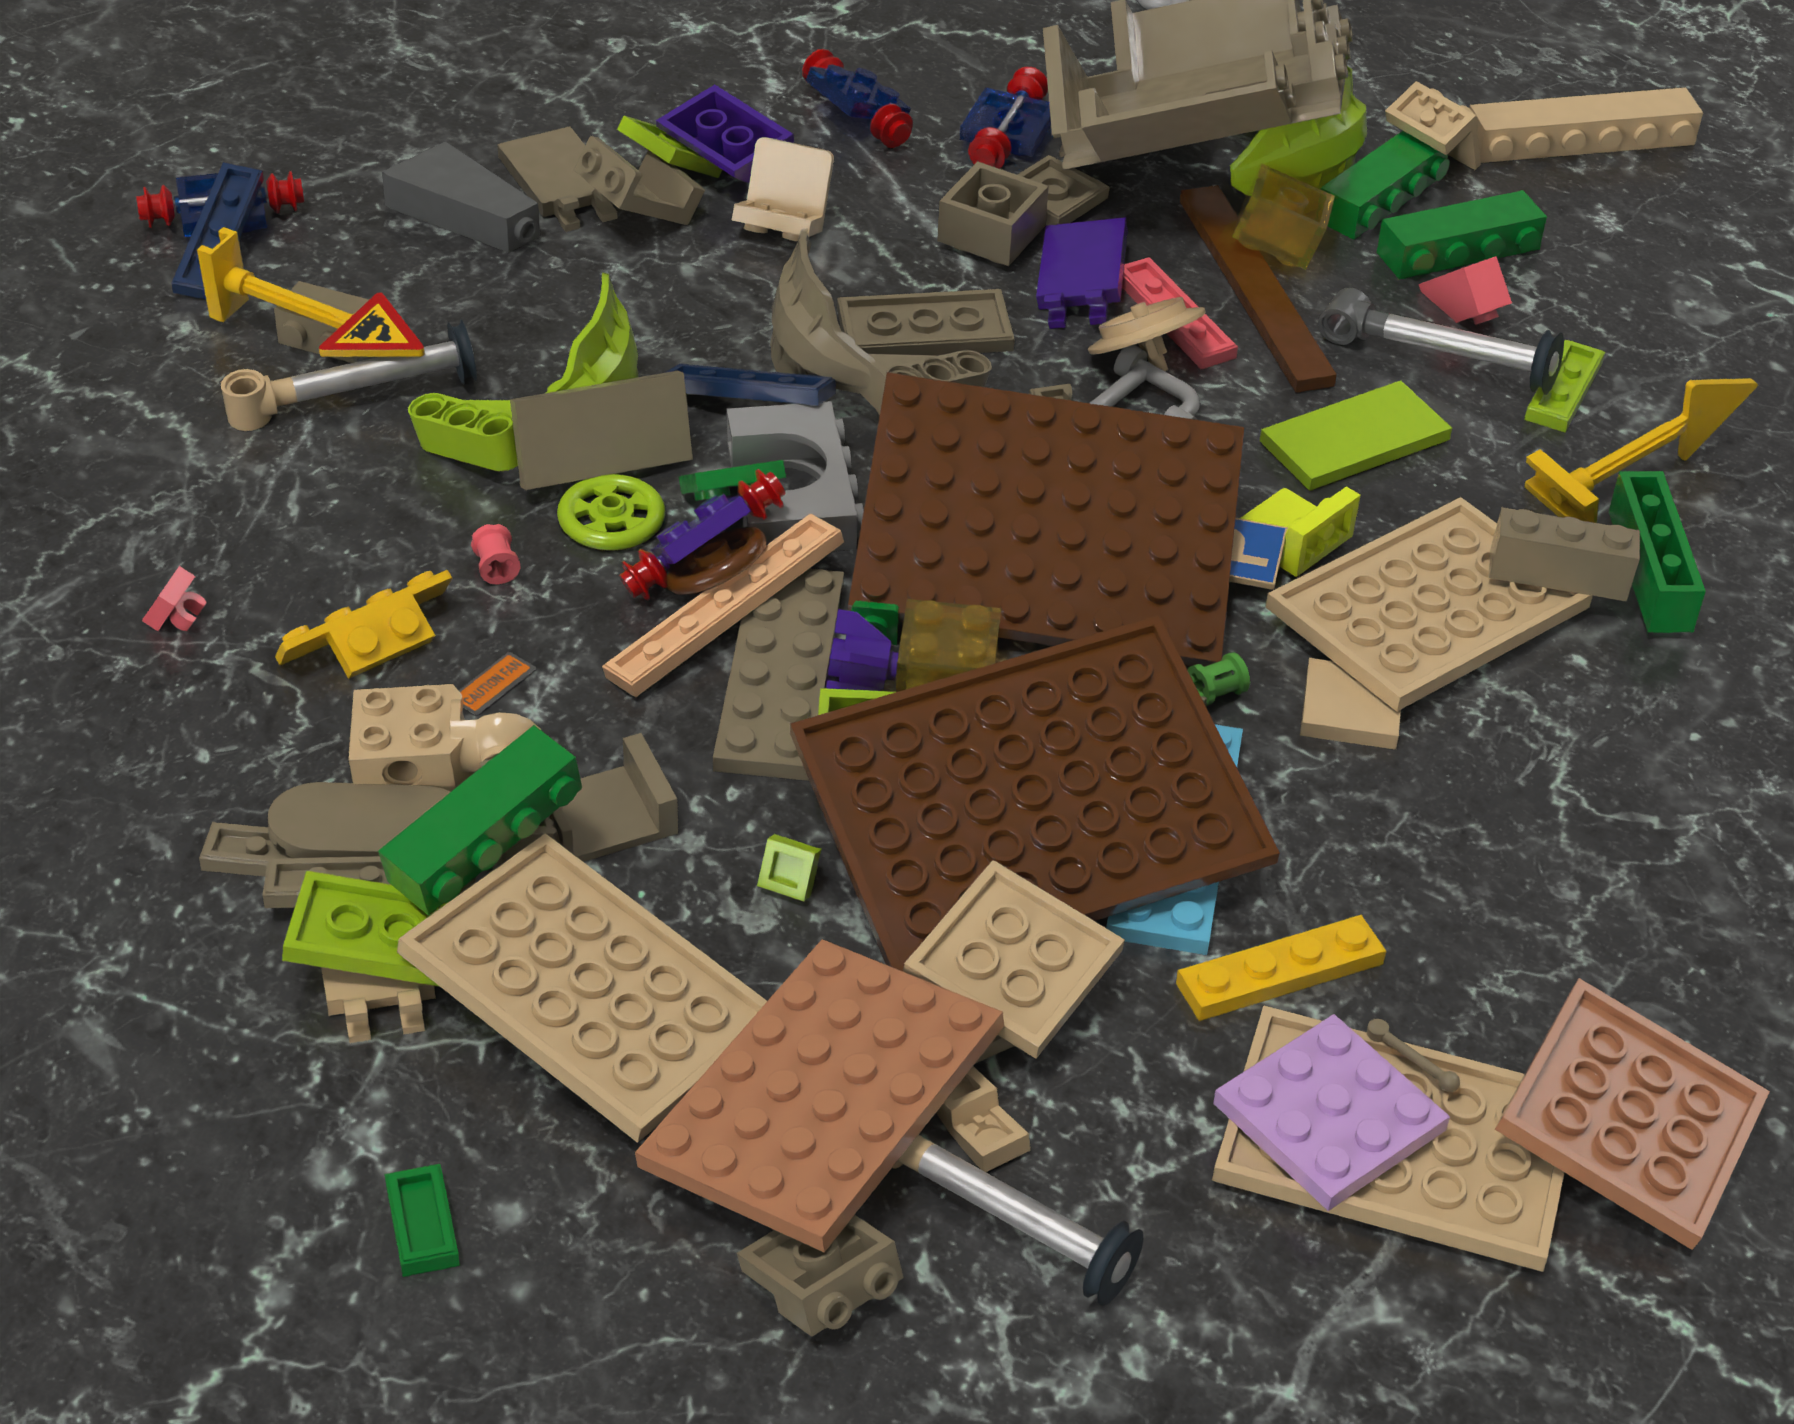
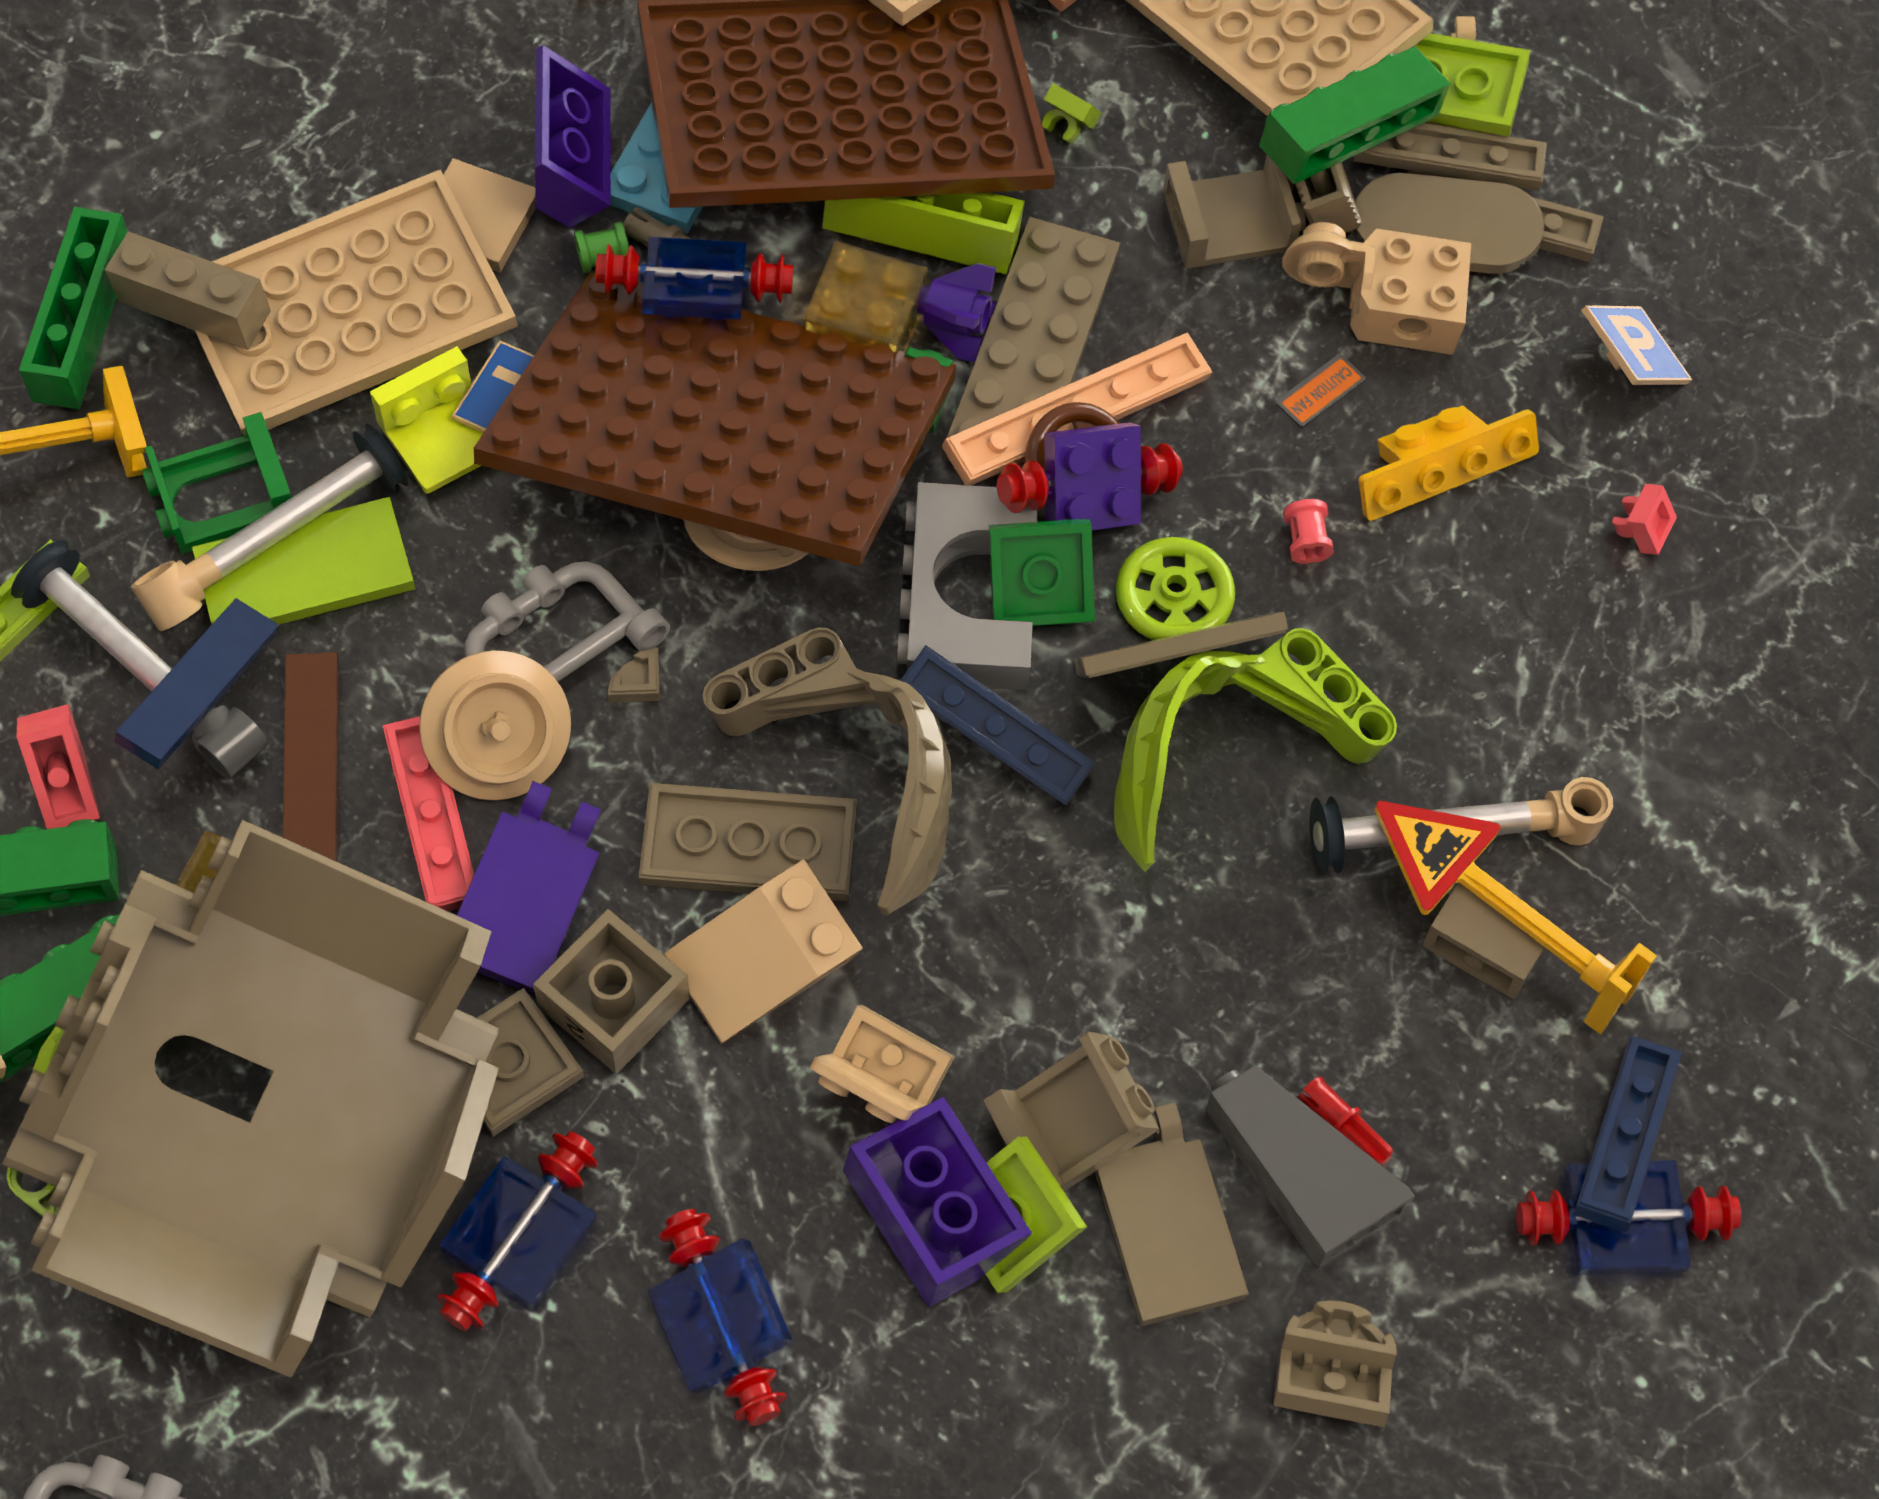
camera: 170 degrees left, 20 degrees up
(173, 729) = (1636, 345): none -> piece
(433, 116) = (1336, 1365): none -> dark tan slope
(435, 224) = (1346, 1120): none -> red axle
(880, 255) = (764, 951): none -> tan slope
(1109, 605) = (694, 277): none -> clear blue plate
(1292, 727) = (571, 140): none -> dark purple slope
(1387, 319) = (196, 683): none -> dark blue tile
(1423, 480) = (174, 474): none -> green panel
(1438, 389) = (176, 589): none -> piece

